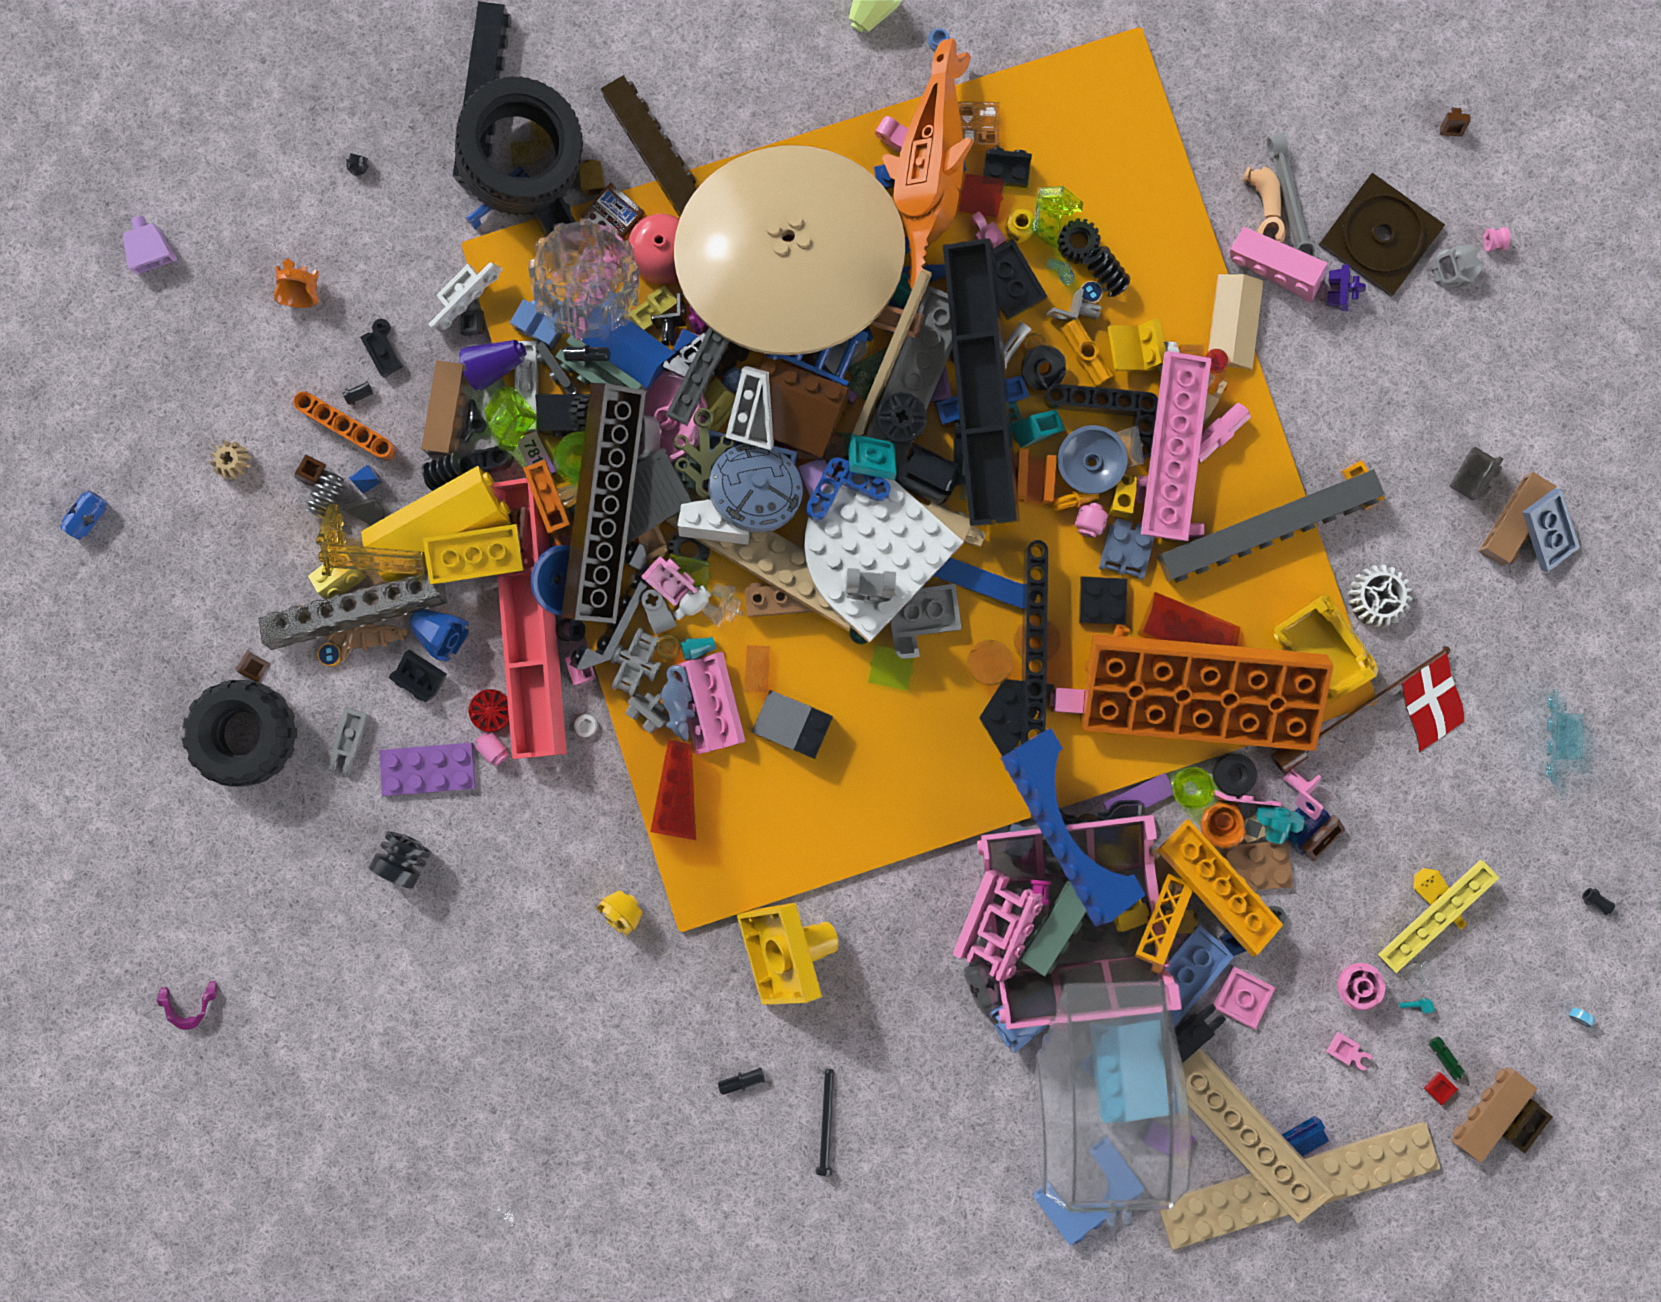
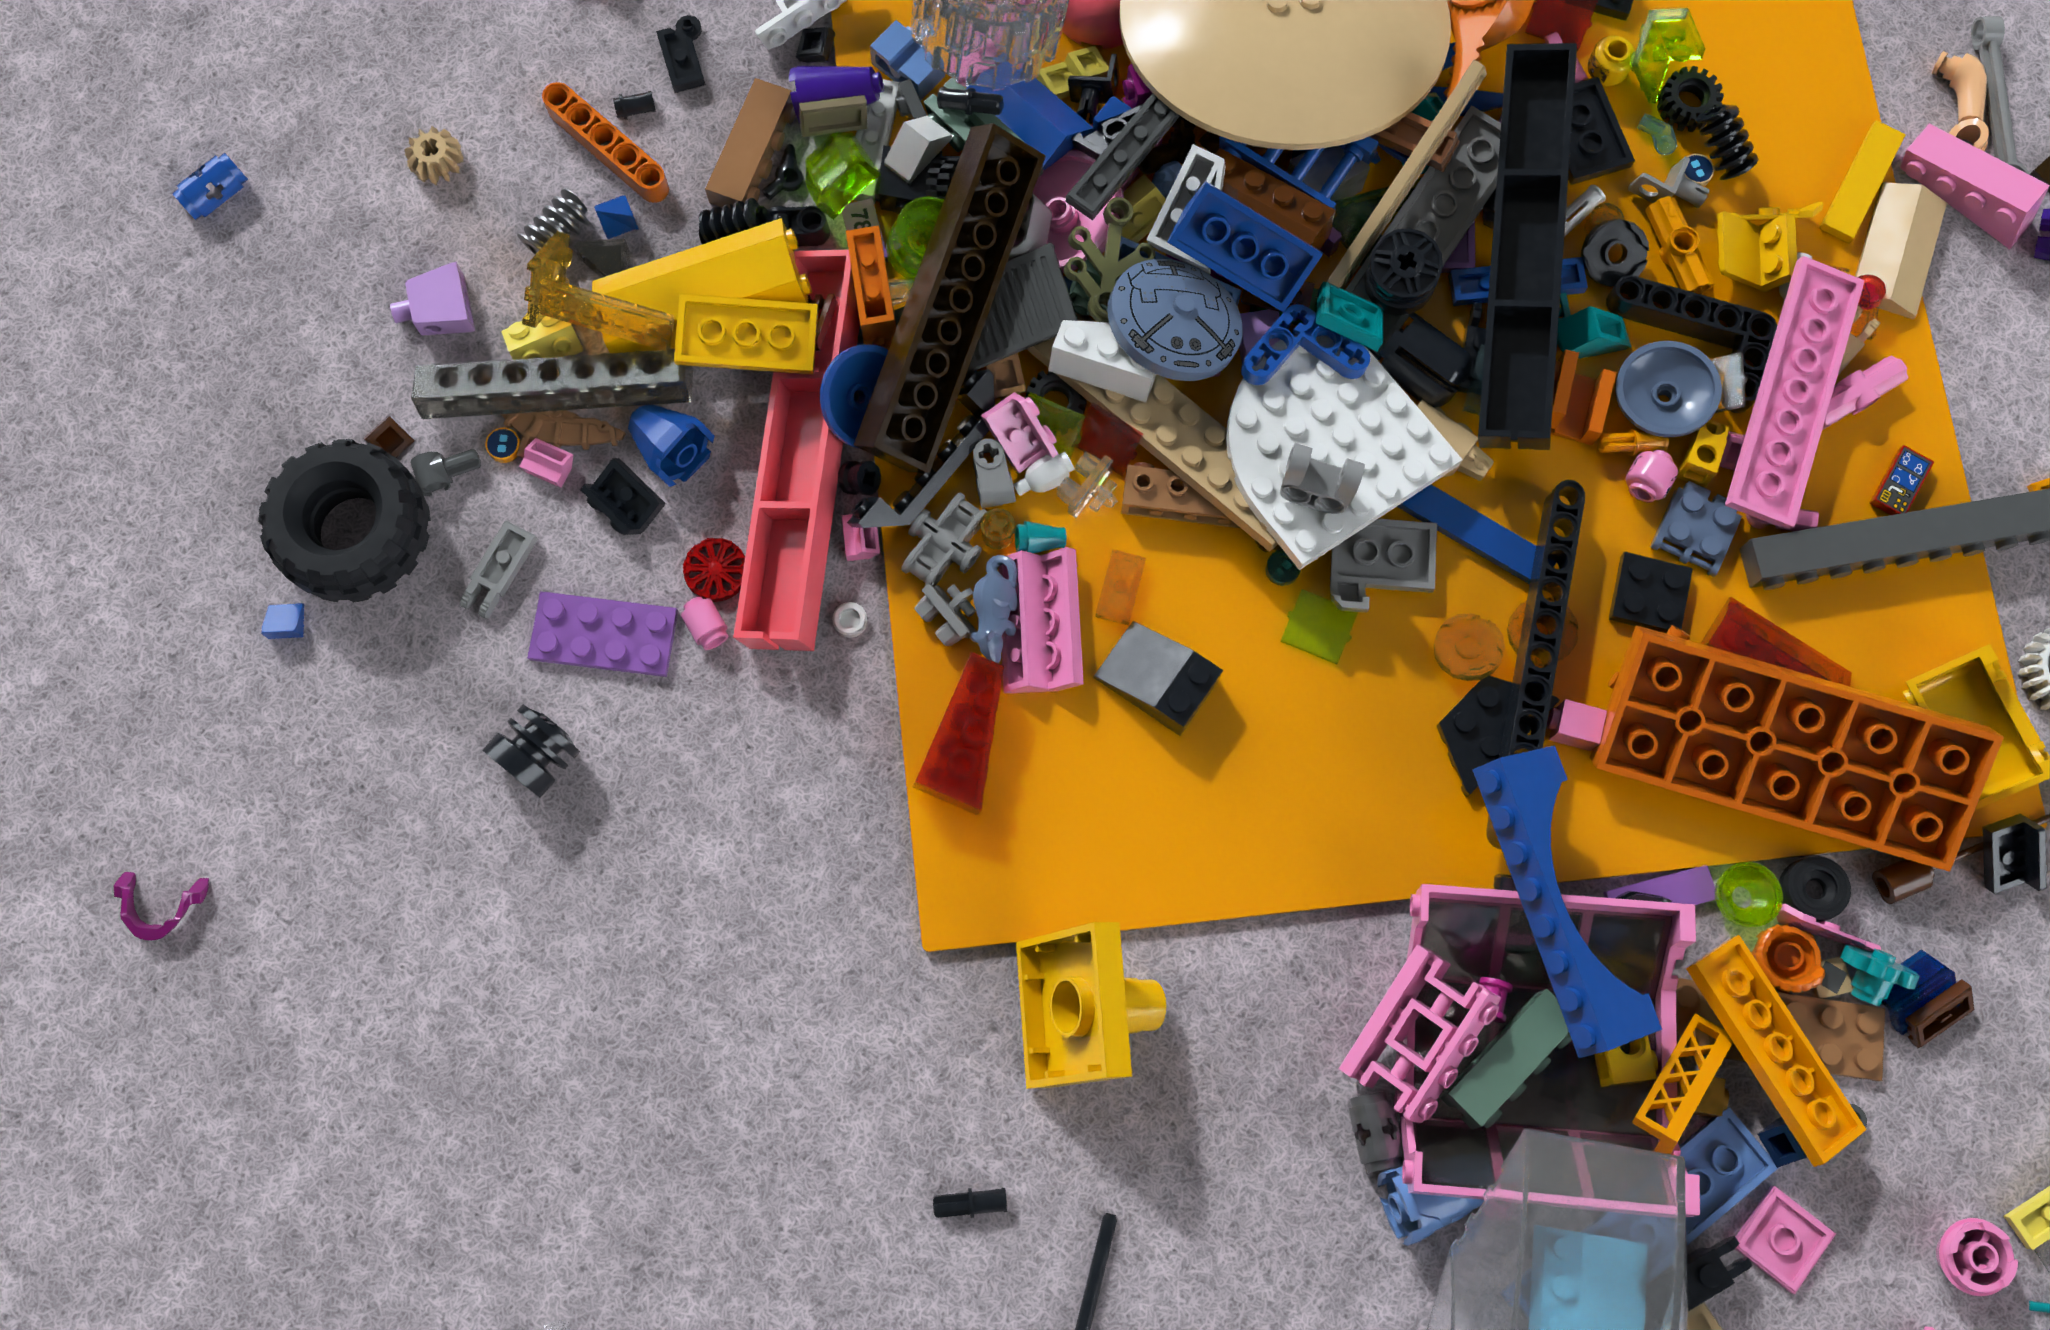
camera: 10 degrees right, 10 degrees down
(217, 804) = (284, 621): none -> slope
(260, 565) = (436, 302): none -> lavender torso
(290, 682) = (436, 472): none -> dark grey axle
(309, 470) = (539, 191): reddish brown slope -> none
(361, 661) = (547, 462): none -> bright pink piece
(496, 380) = (833, 116): none -> dark tan tile
(557, 392) = (916, 147): none -> white slope
(621, 911) = (842, 897): yellow cone -> none
(729, 571) = (1110, 436): none -> clear red piece
(790, 432) = (1244, 246): none -> blue slope
(1145, 315) = (1774, 212): none -> yellow piece
(1204, 276) = (1862, 181): none -> yellow tile
(1256, 489) = (1901, 481): none -> tile
(1304, 788) = (1921, 937): bright pink bracket -> none
(1356, 727) = (2014, 854): none -> black bracket

